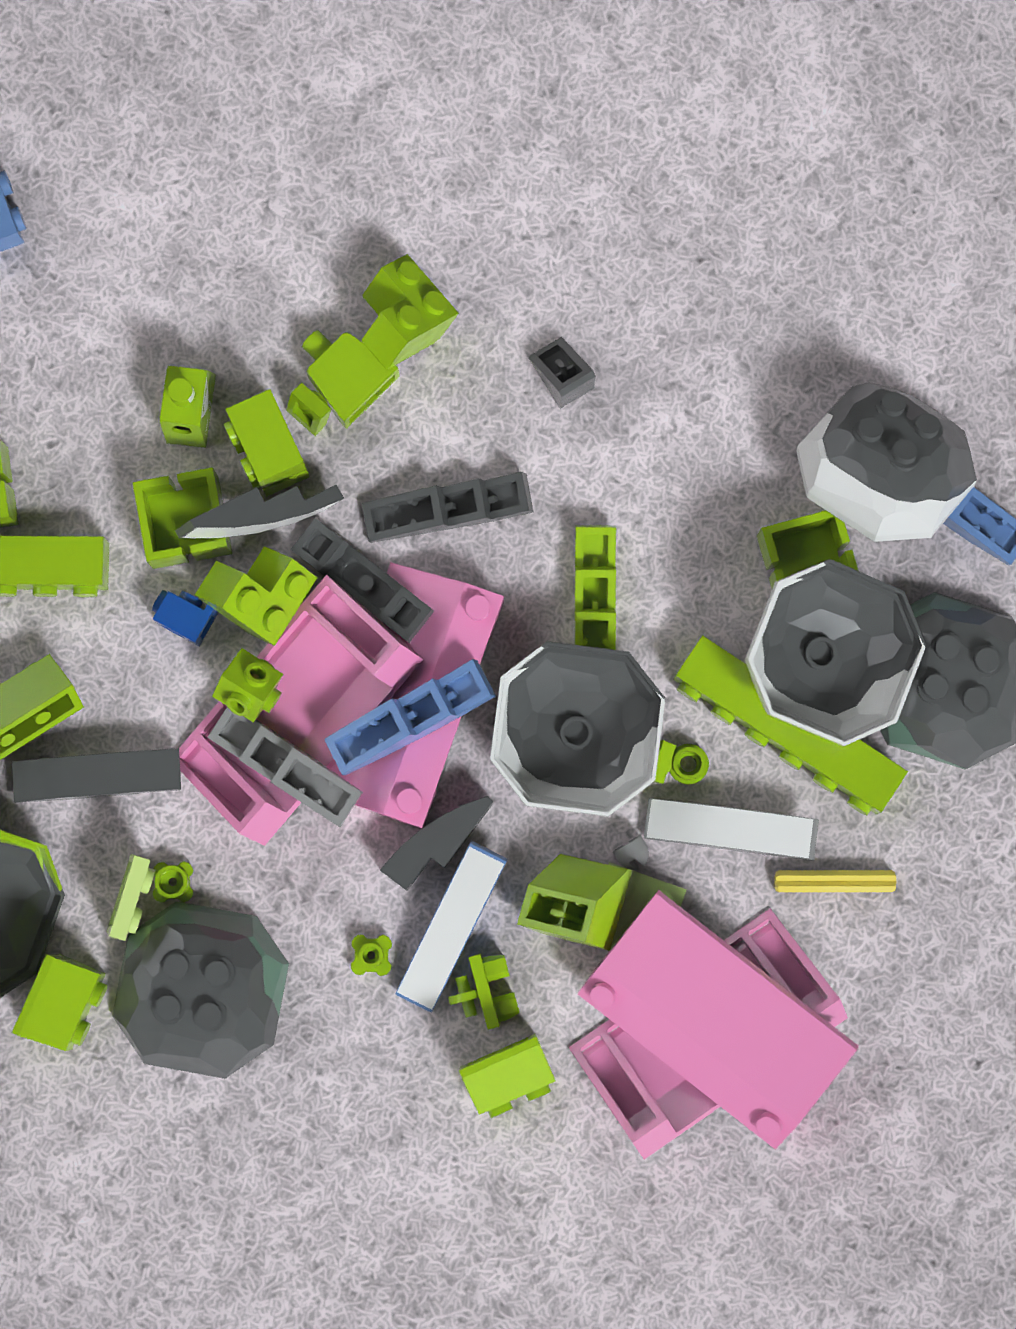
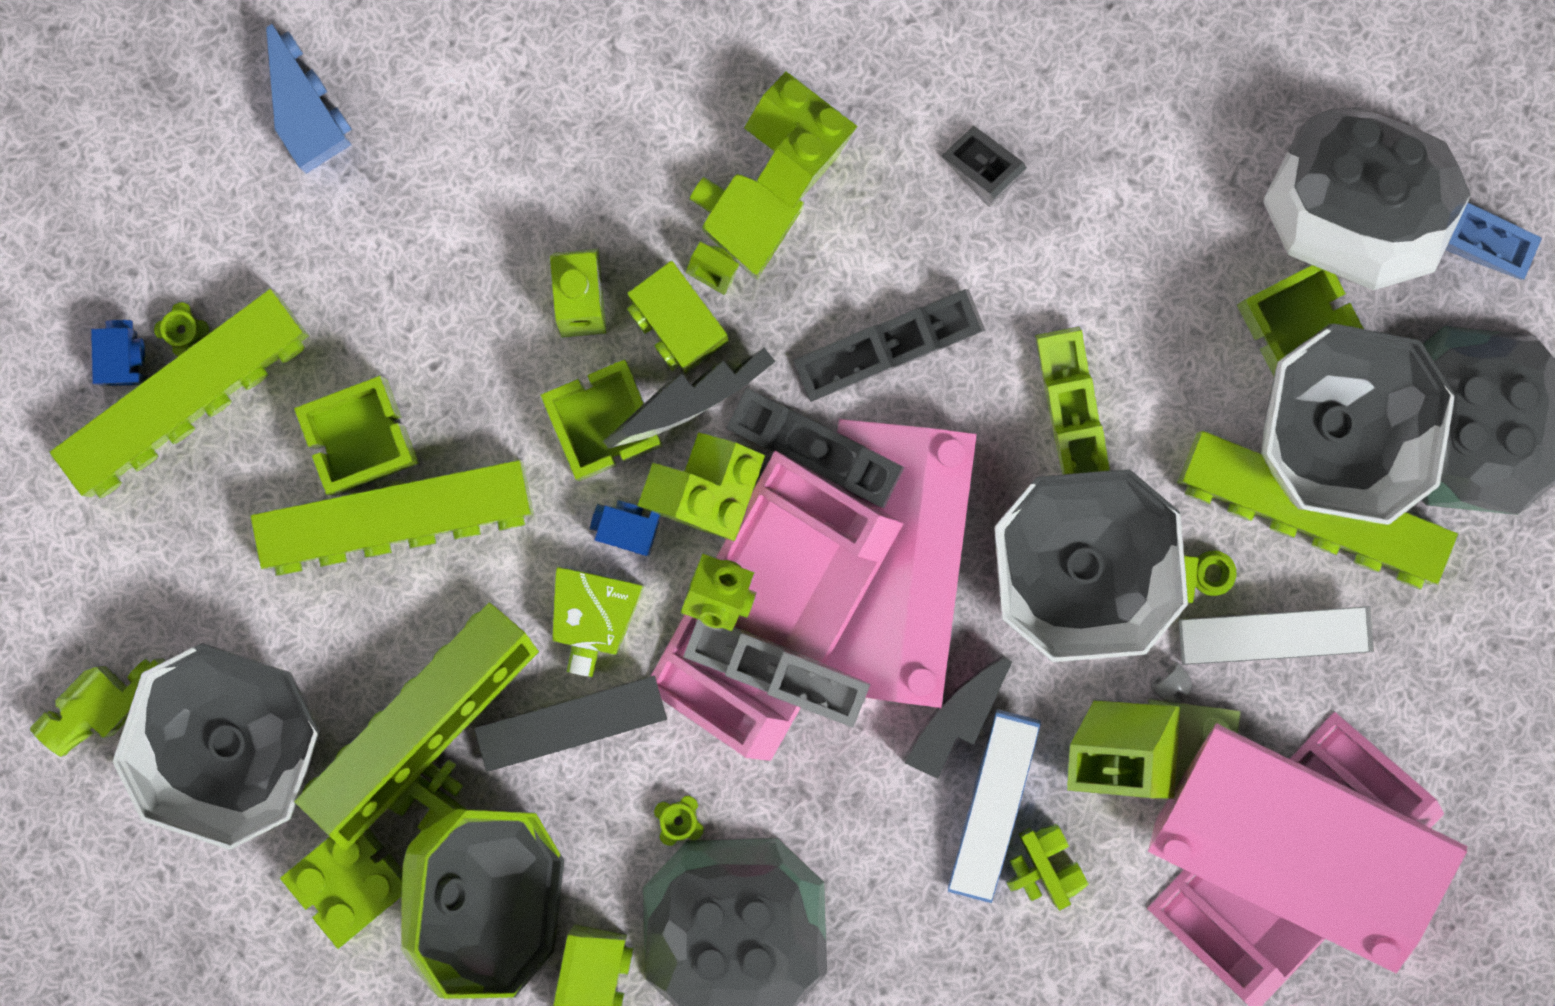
camera: 10 degrees left, 5 degrees up
(125, 914) = (639, 834): yellowish green plate -> none
(137, 685) = (591, 615): none -> lime torso
(363, 946) = (922, 863): lime plate -> none
(409, 717) = (903, 591): medium blue slope -> none
(507, 1075) = (1090, 953): lime slope -> none
(835, 881) = (1399, 667): light yellow axle -> none

